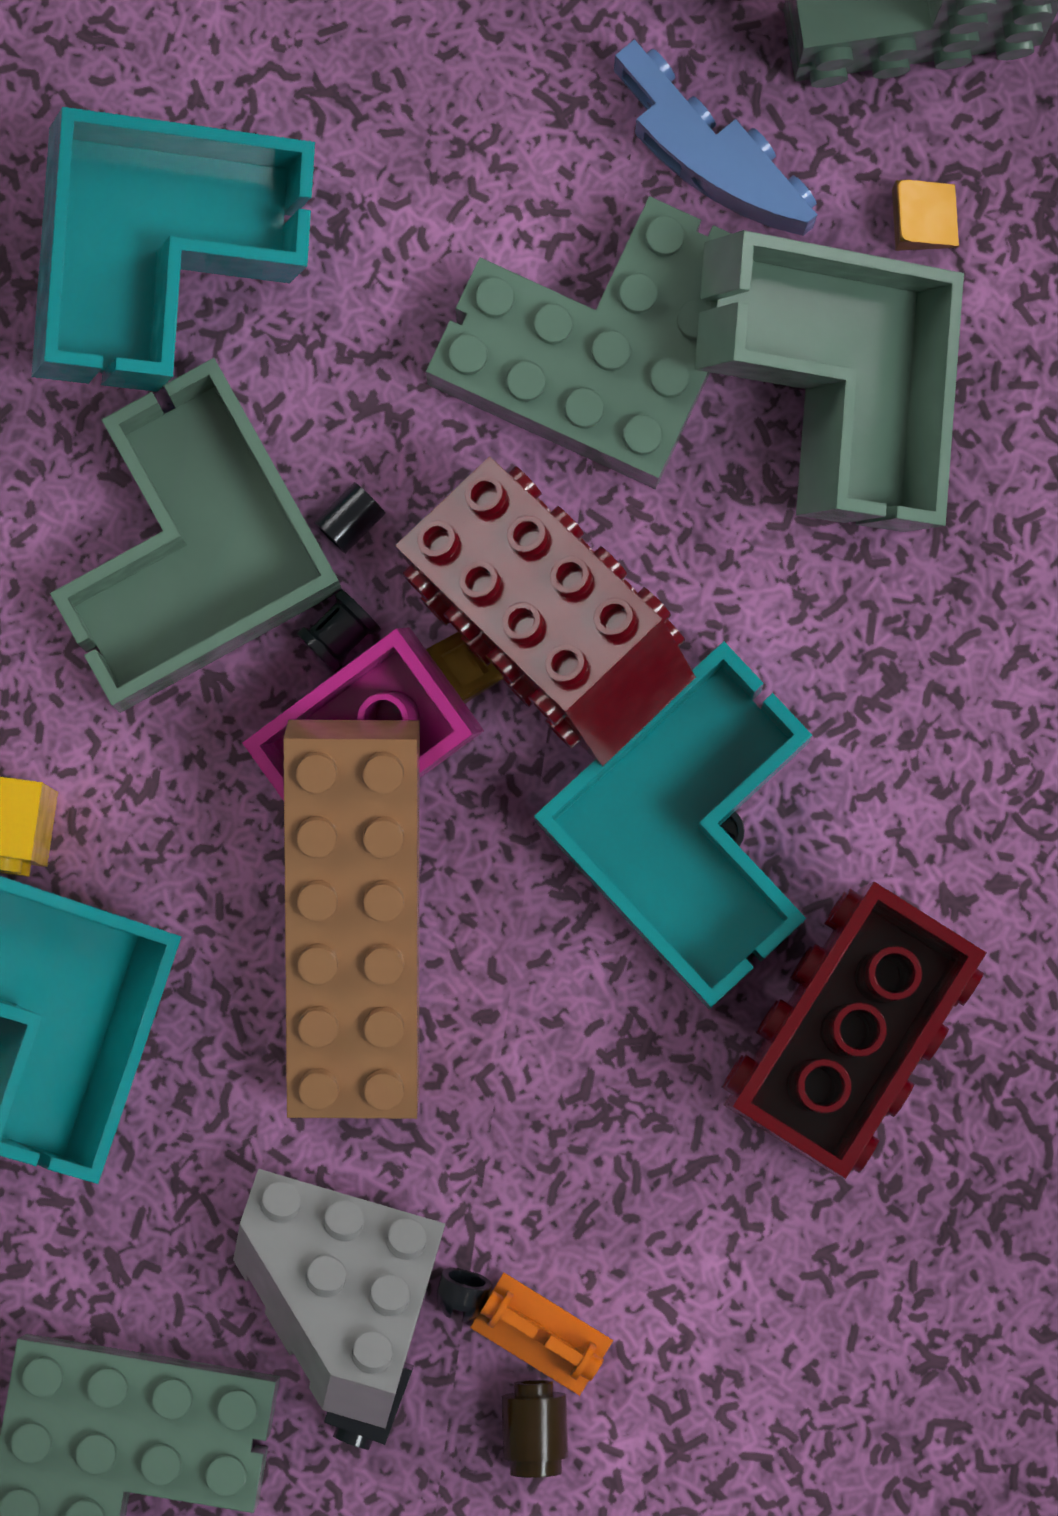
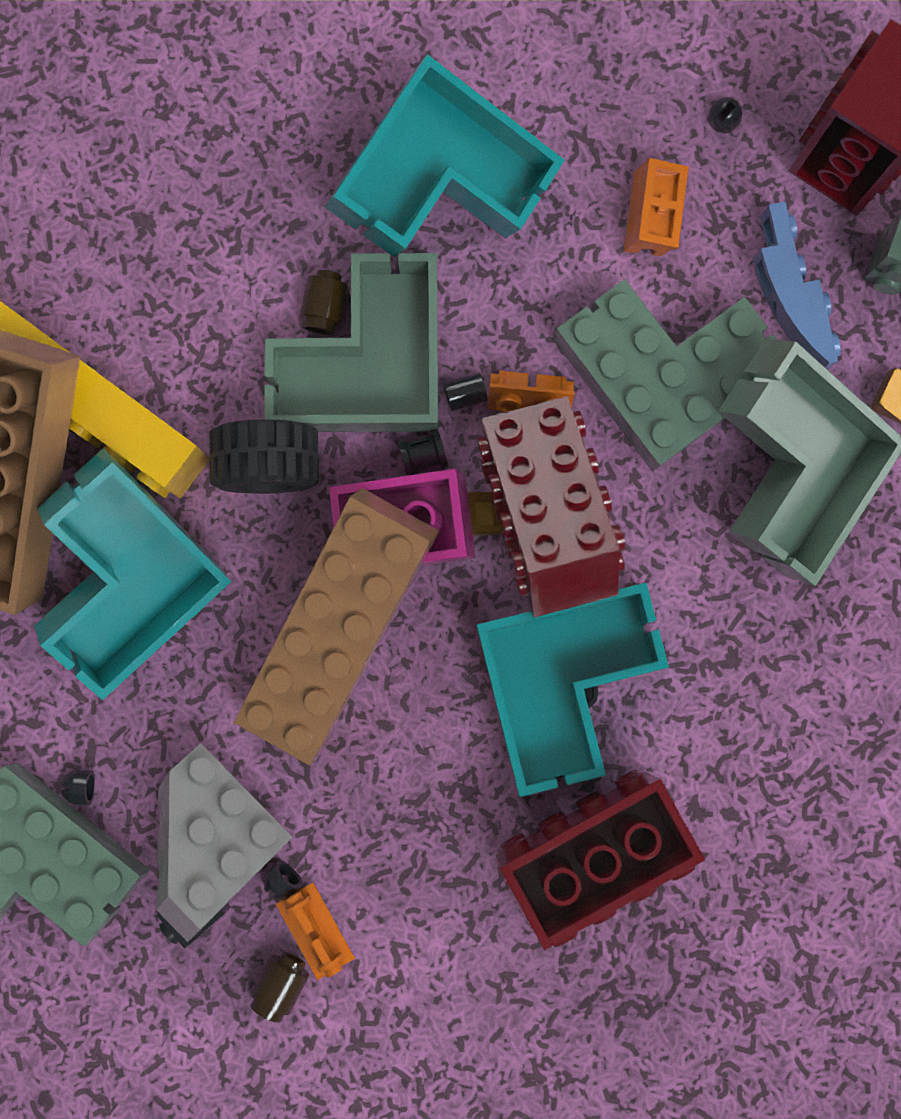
camera: 30 degrees right, 0 degrees up
(95, 501) = (323, 302): none -> dark brown brick
(129, 1316) = (80, 787): none -> black hinge
(134, 749) = (264, 456): none -> black tyre
(413, 489) = (510, 390): none -> orange hinge
(468, 136) = (656, 207): none -> orange hinge

